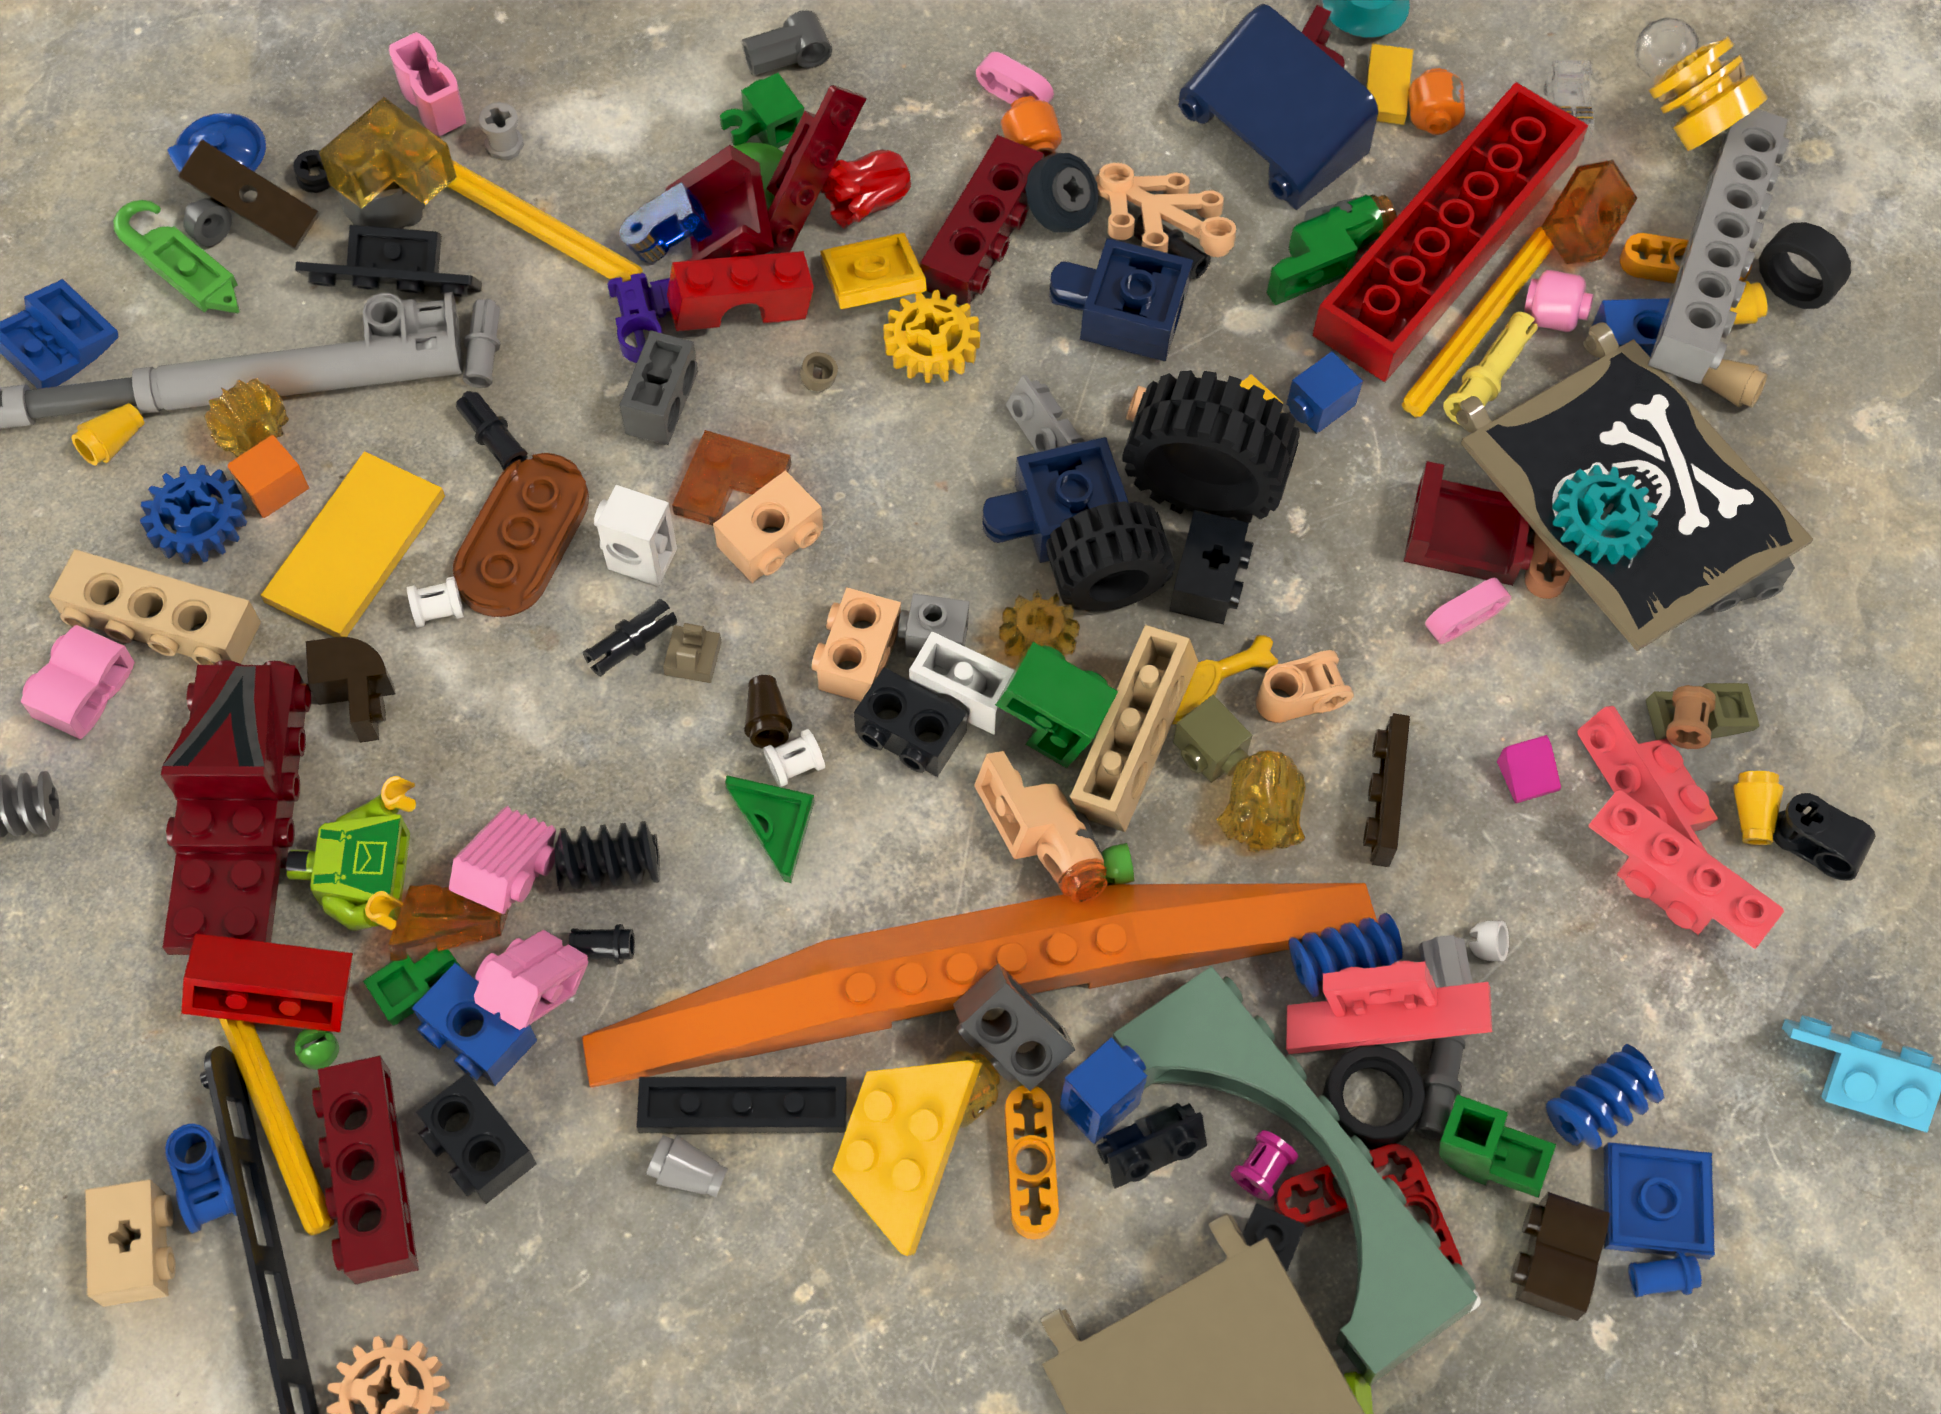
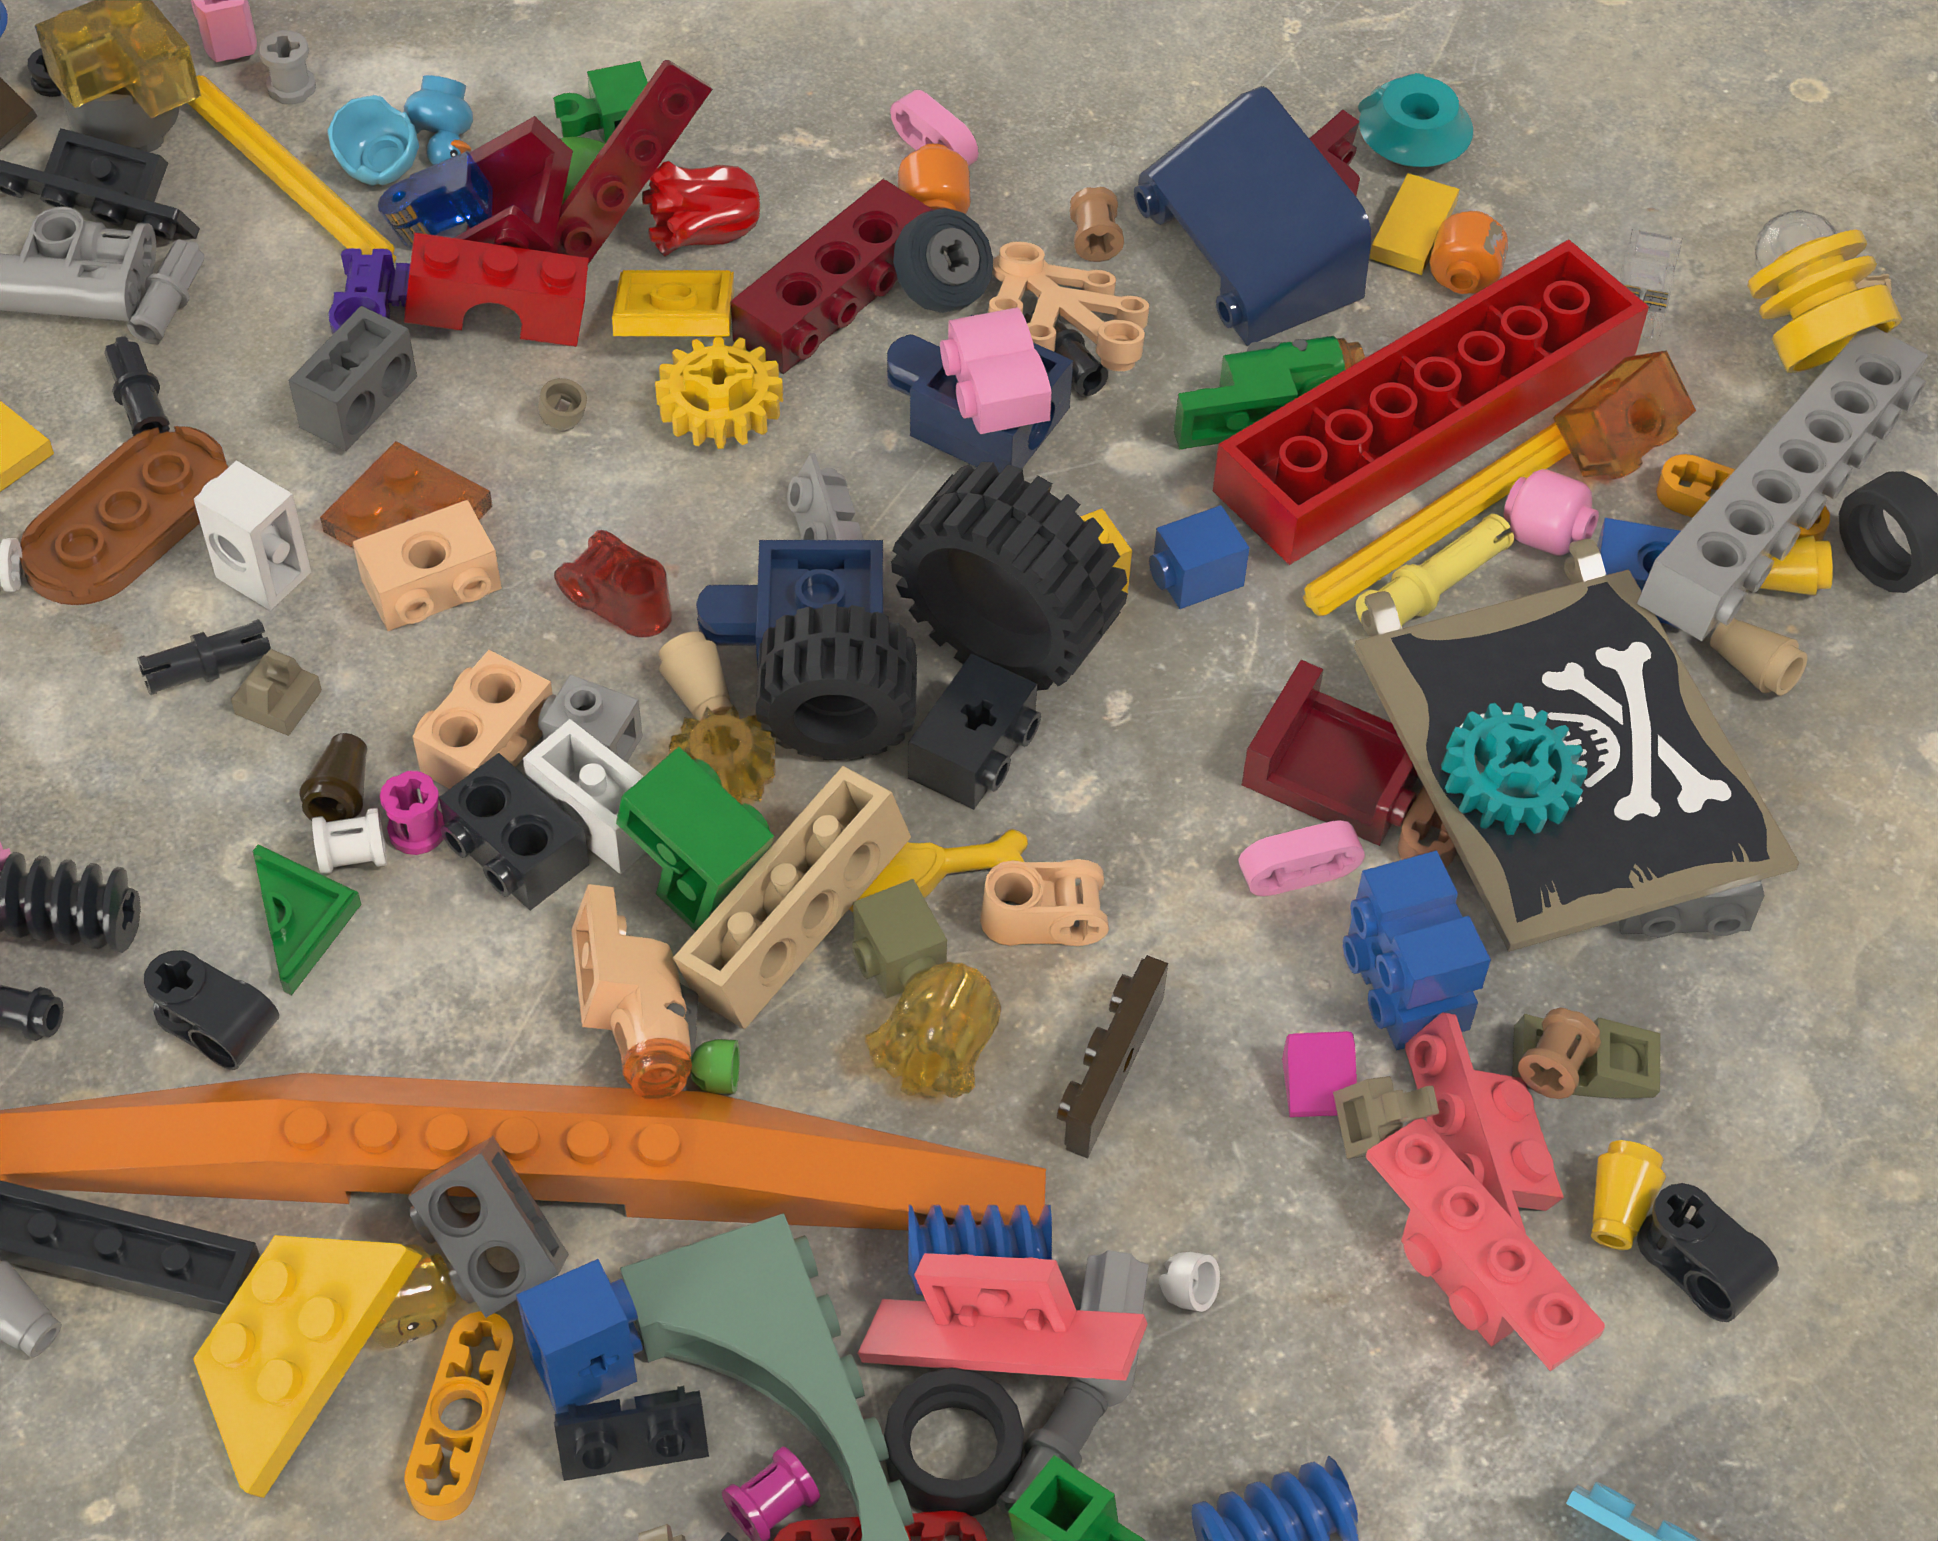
camera: 15 degrees right, 10 degrees down
(595, 182) = (373, 140): none -> medium azure hair
(637, 144) = (441, 110): none -> dark azure animal
(750, 912) = (208, 1007): none -> black piece
(798, 41) = (686, 39): dark grey piece -> none
(822, 716) = (403, 806): none -> dark pink bush
(905, 508) = (618, 585): none -> clear red piece
(997, 570) = (695, 673): none -> tan cone
(1148, 284) = (996, 371): none -> bright pink brick
(1160, 135) = (1097, 232): none -> medium nougat bush
(1574, 664) = (1414, 947): none -> blue brick
(1582, 795) = (1375, 1111): none -> dark tan plate

